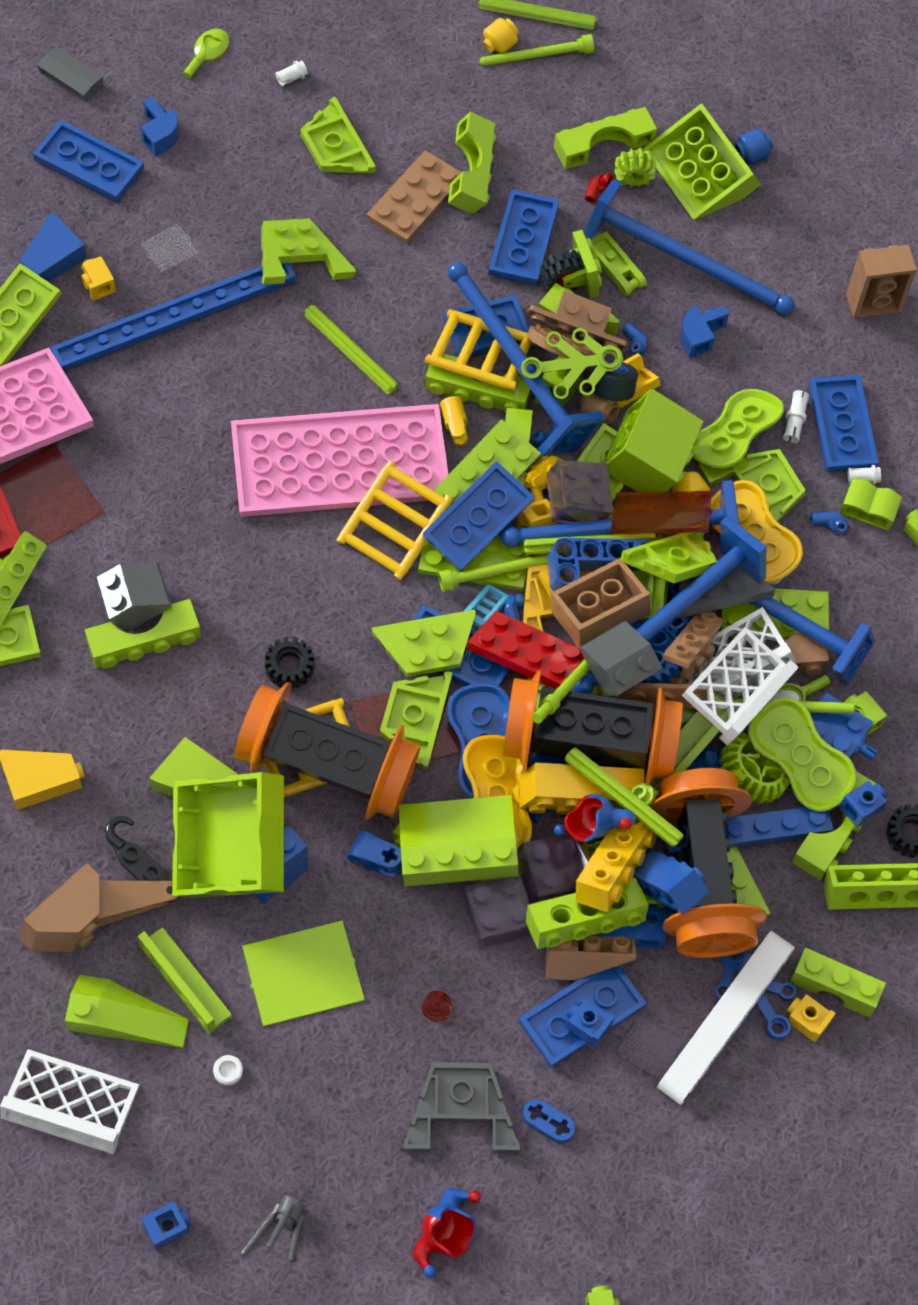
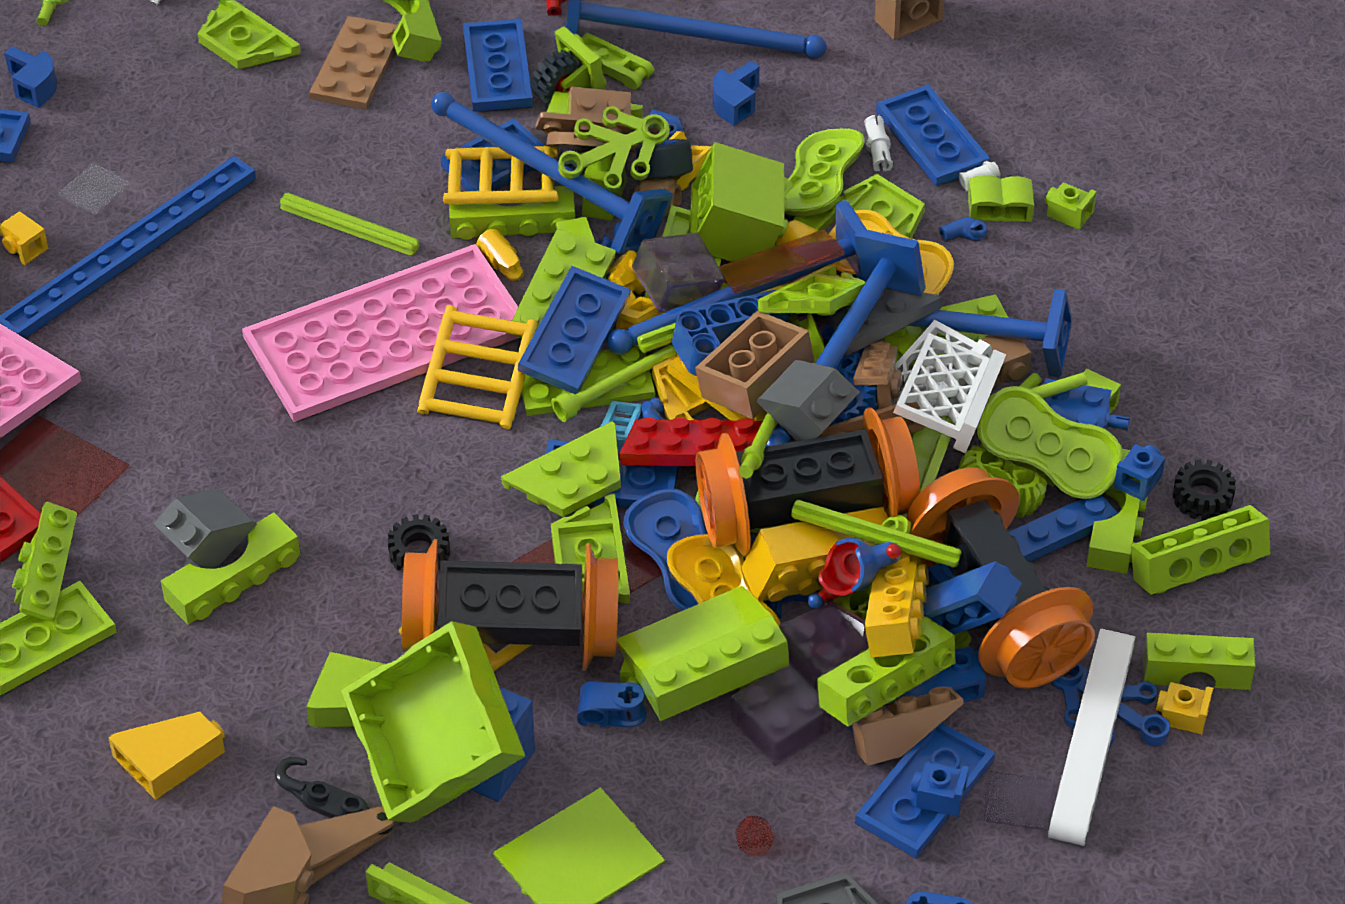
camera: 15 degrees left, 15 degrees down
(298, 242) = (246, 138): lime wing -> none

